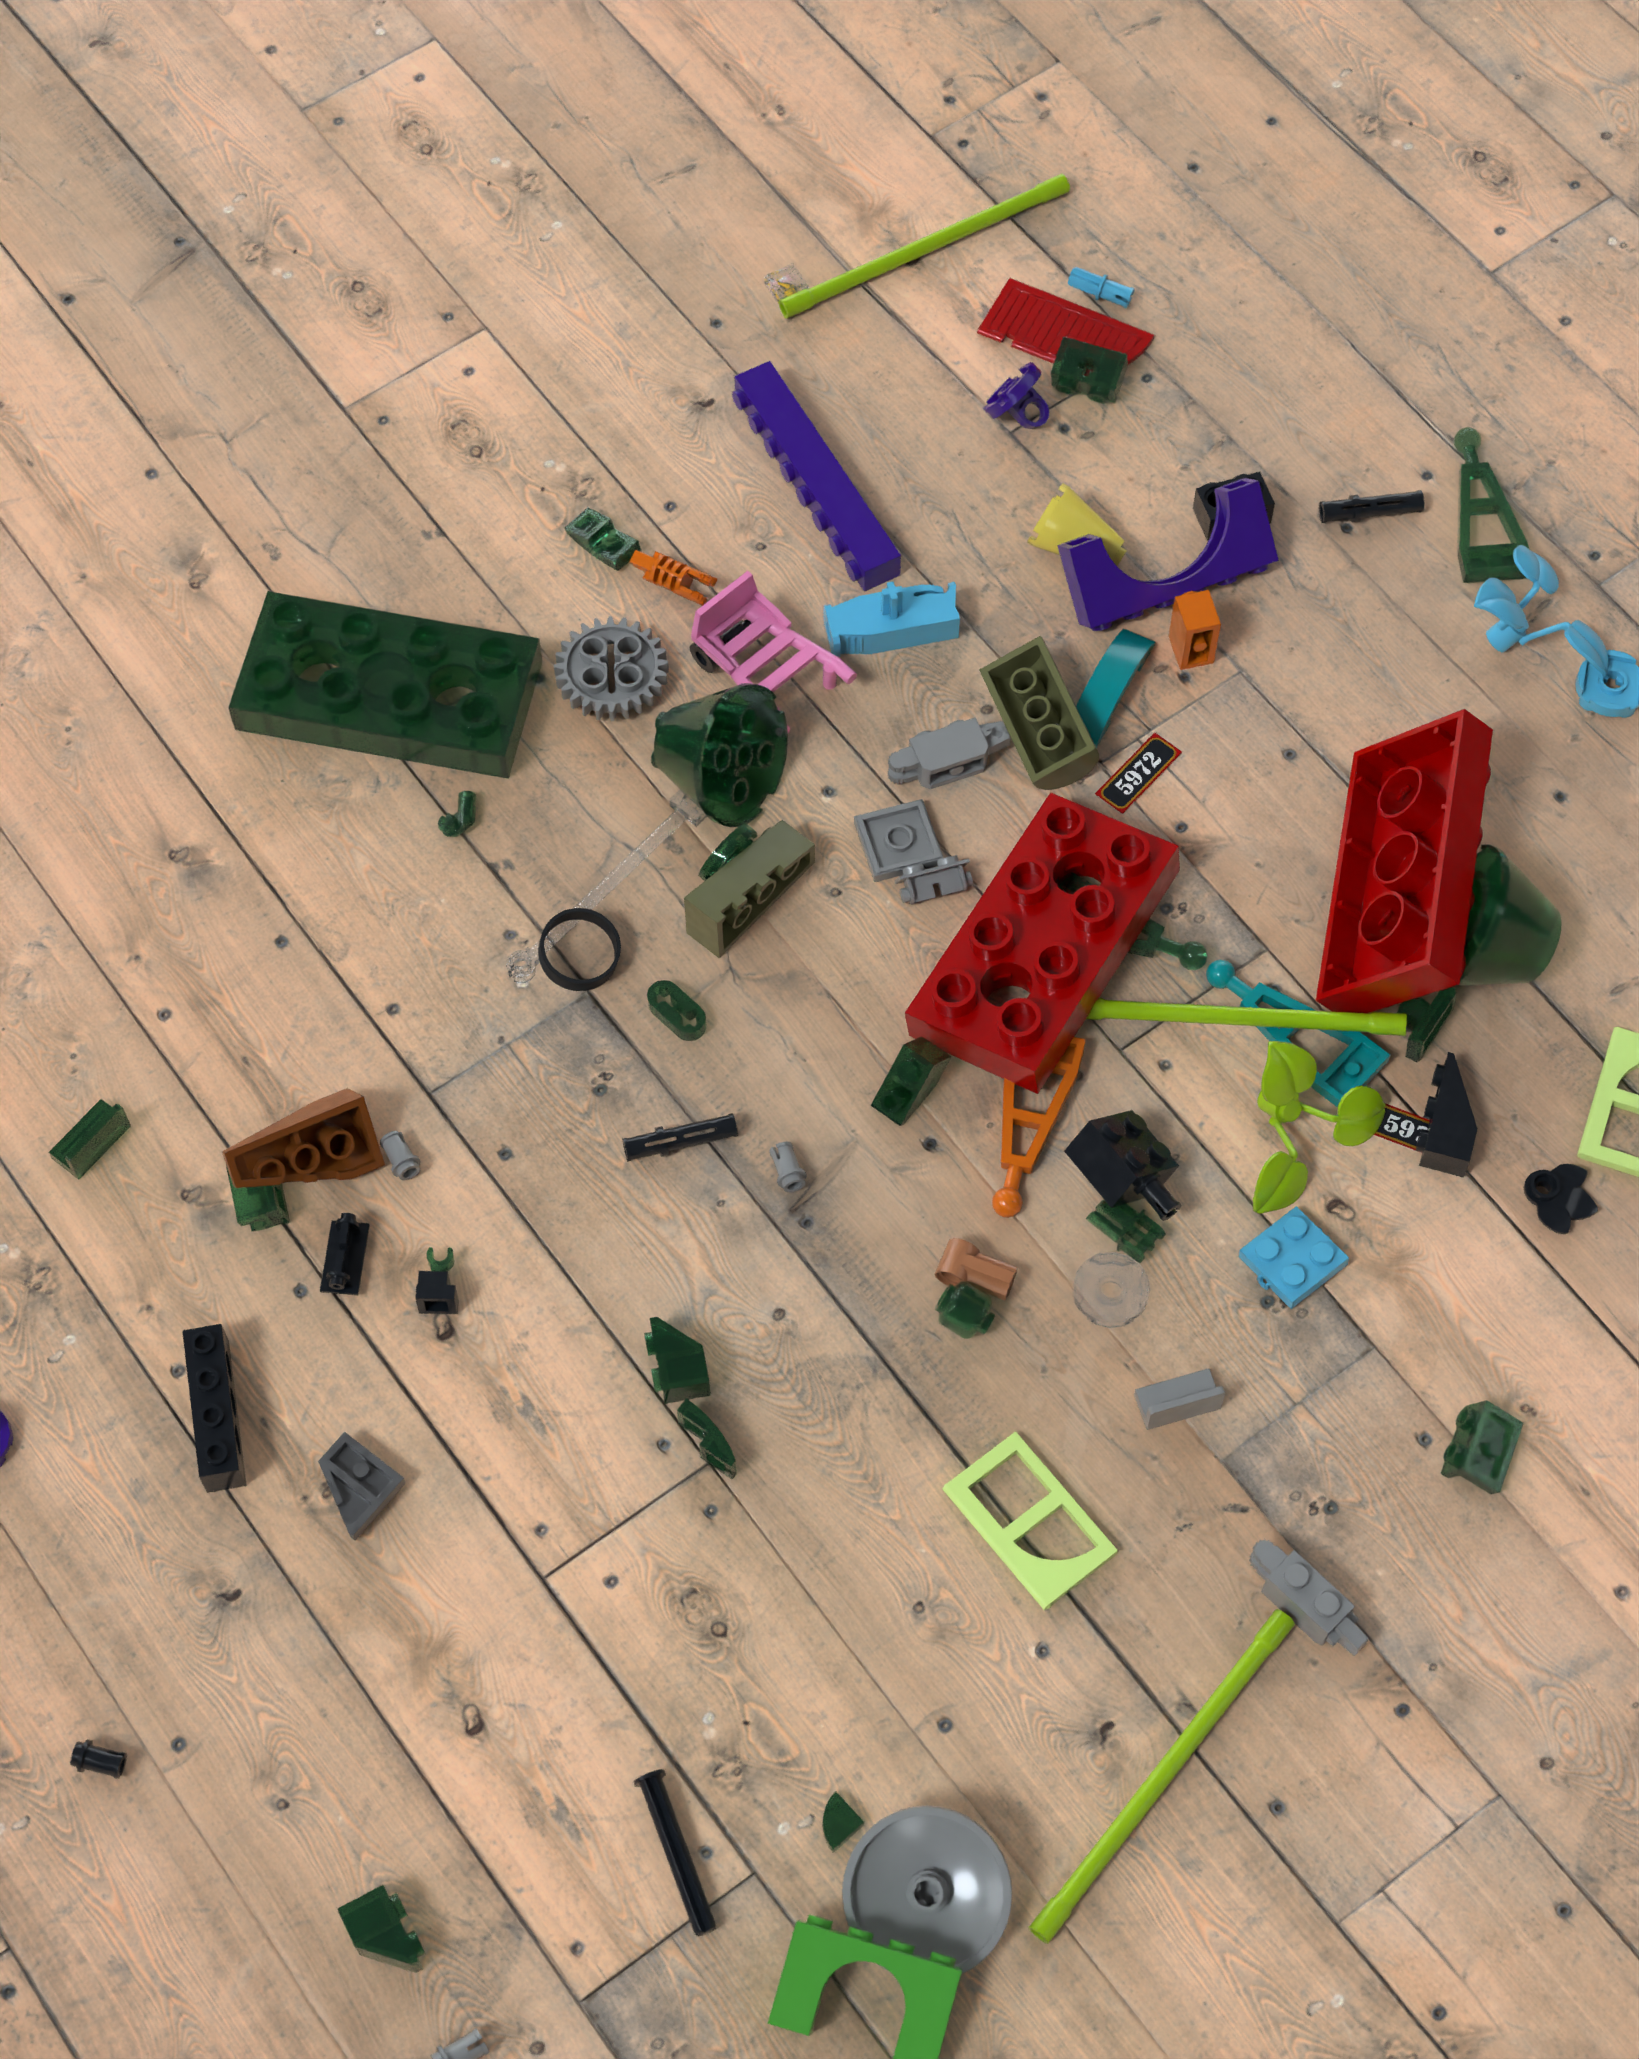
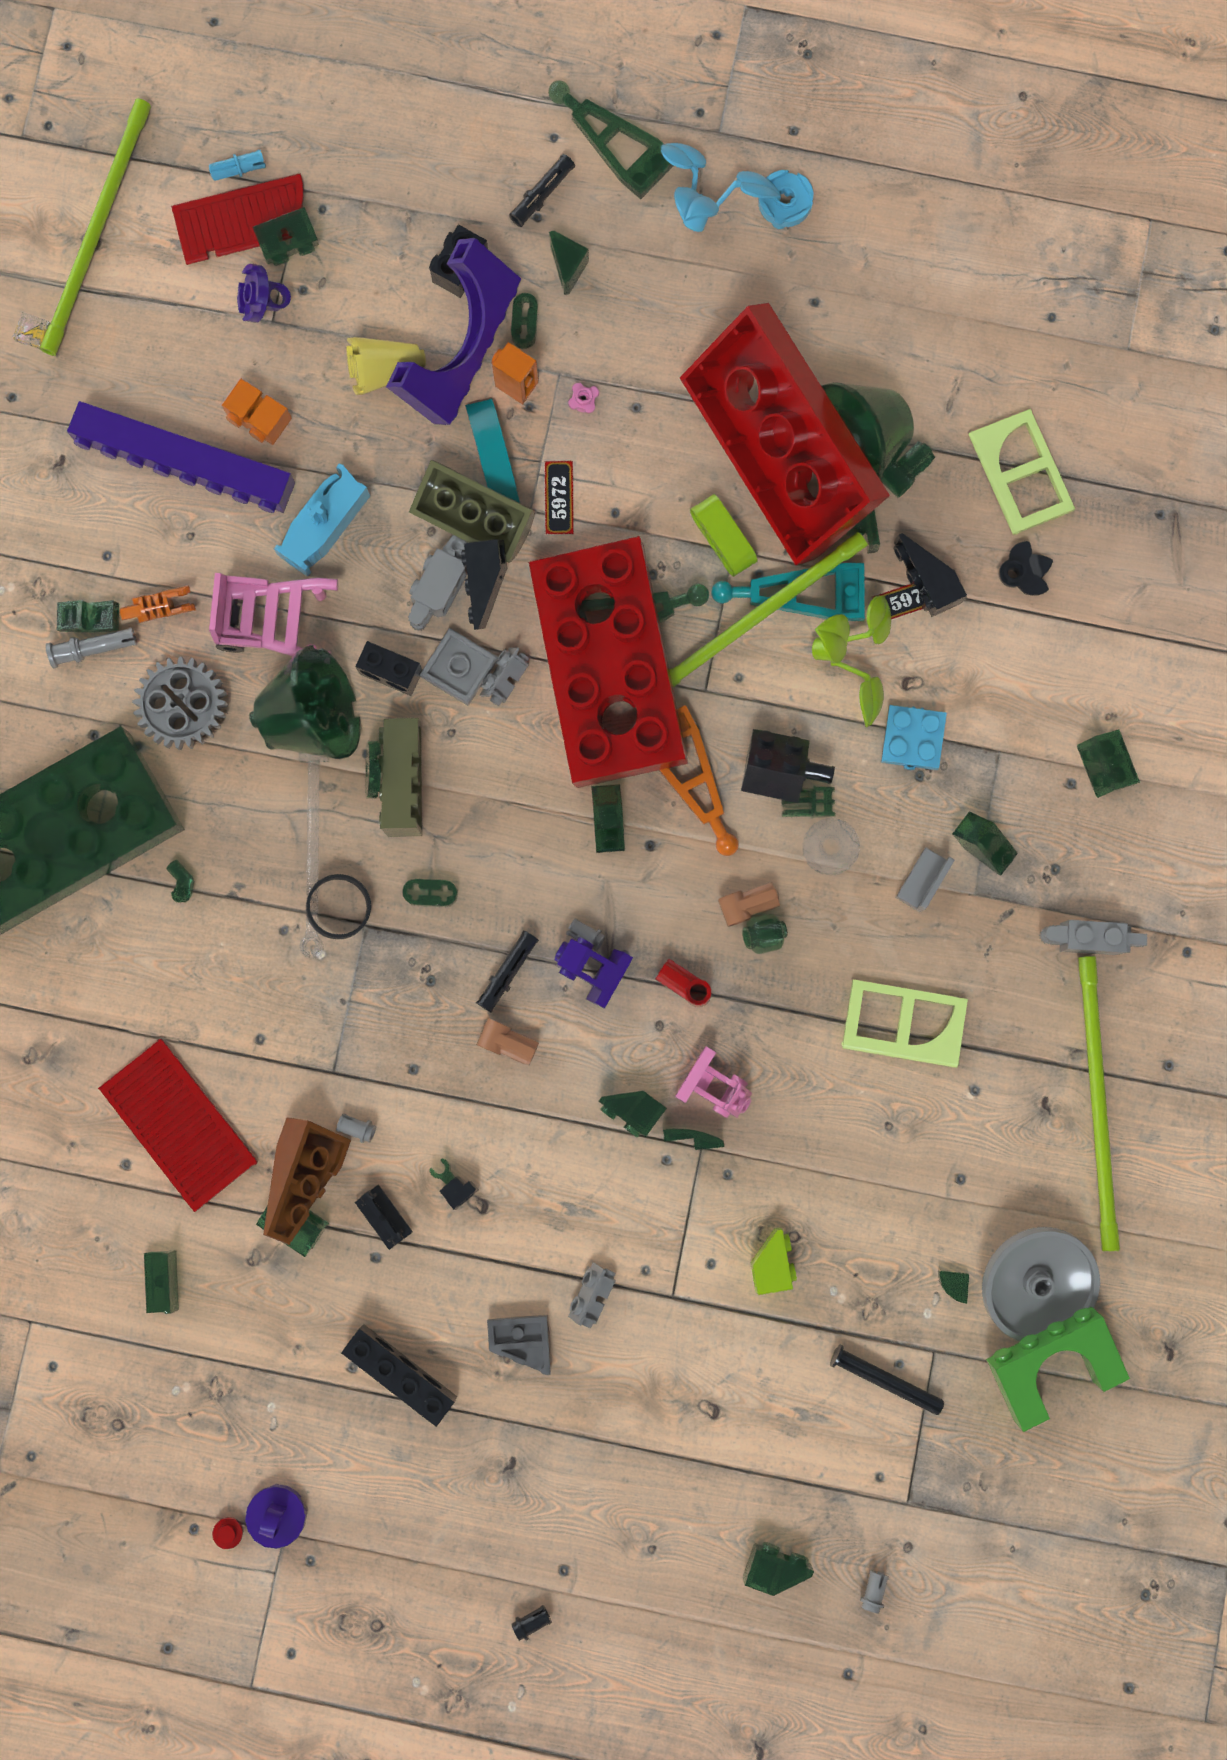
camera: 45 degrees left, 20 degrees up
(244, 1020) = (178, 1125): none -> red window
(451, 1506) = (584, 1307): none -> light grey hinge
(566, 557) = (78, 649): none -> light grey pin
(613, 1191) = (503, 1041): none -> nougat piece
(668, 1628) = (771, 1265): none -> lime slope
(753, 1163) = (574, 956): none -> dark purple tile
(771, 1391) = (736, 1097): none -> bright pink tile
(830, 786) = (389, 668): none -> black brick
(840, 1290) = (681, 982): none -> red piece
(921, 494) = (263, 416): none -> orange piece
(999, 773) = (485, 572): none -> black slope
(1242, 713) = (583, 405): none -> bright pink plate
(1245, 596) = (518, 320): none -> clear green beam
(1269, 923) = (723, 535): none -> lime beam
(1276, 1414) = (985, 842): none -> clear green slope
(1341, 582) = (569, 259): none -> clear green slope
(1505, 1008) = (907, 468): none -> clear green piece

